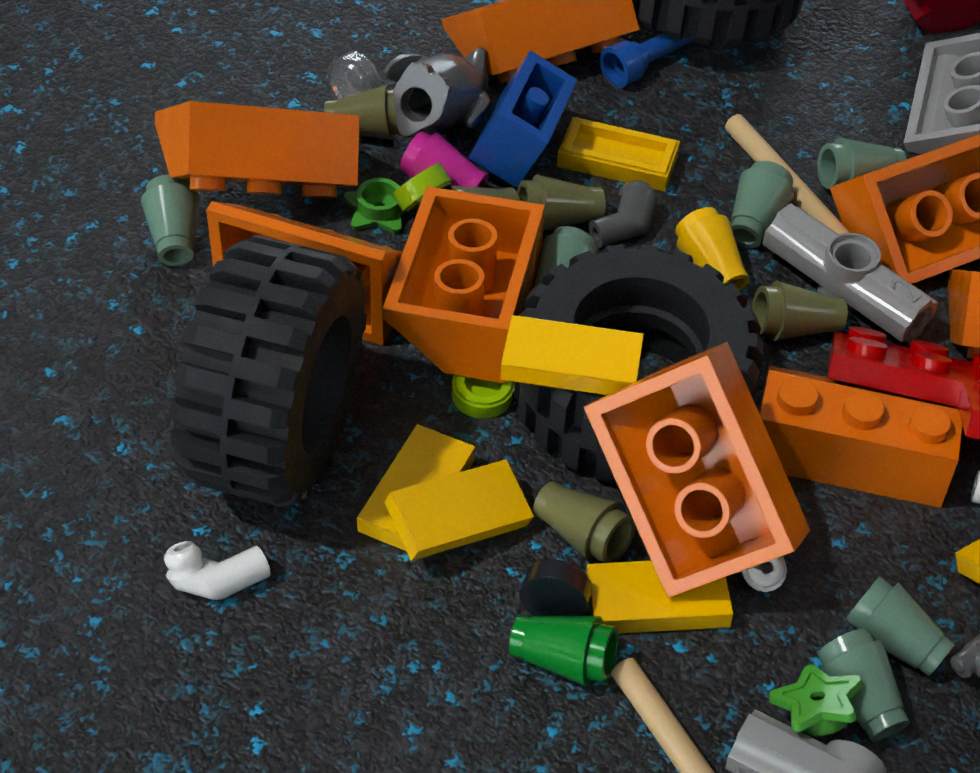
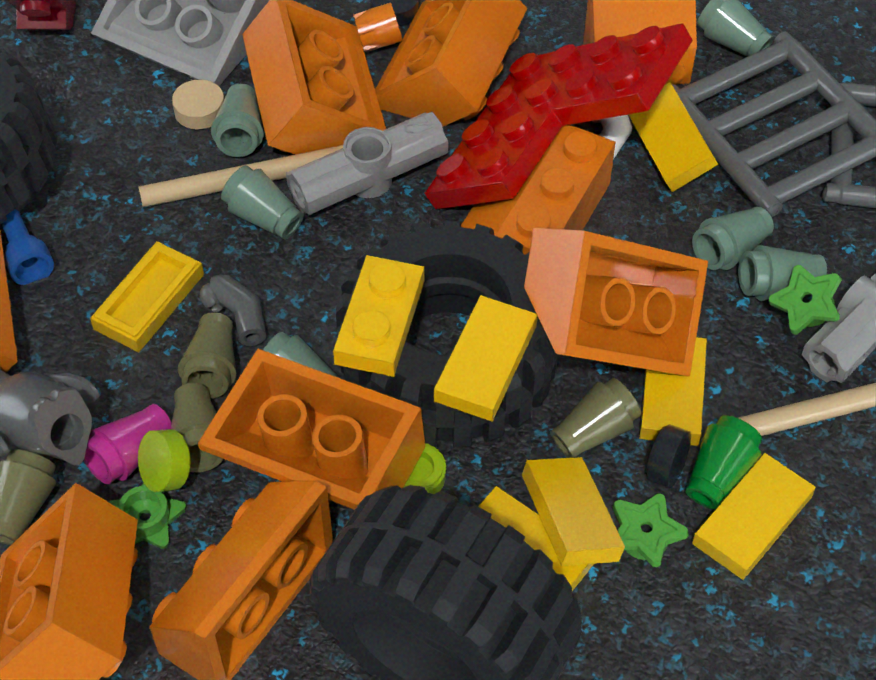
camera: 75 degrees left, 5 degrees up
(462, 604) = (652, 544): none -> bright green plate
(510, 691) = (753, 516): none -> yellow tile
(523, 119) = (105, 346): blue brick -> none
(597, 267) = (379, 316): none -> yellow plate
(711, 241) = (309, 251): yellow cone -> none
(796, 312) = (398, 208): olive cone -> none
(874, 129) = (197, 103): none -> tan tile

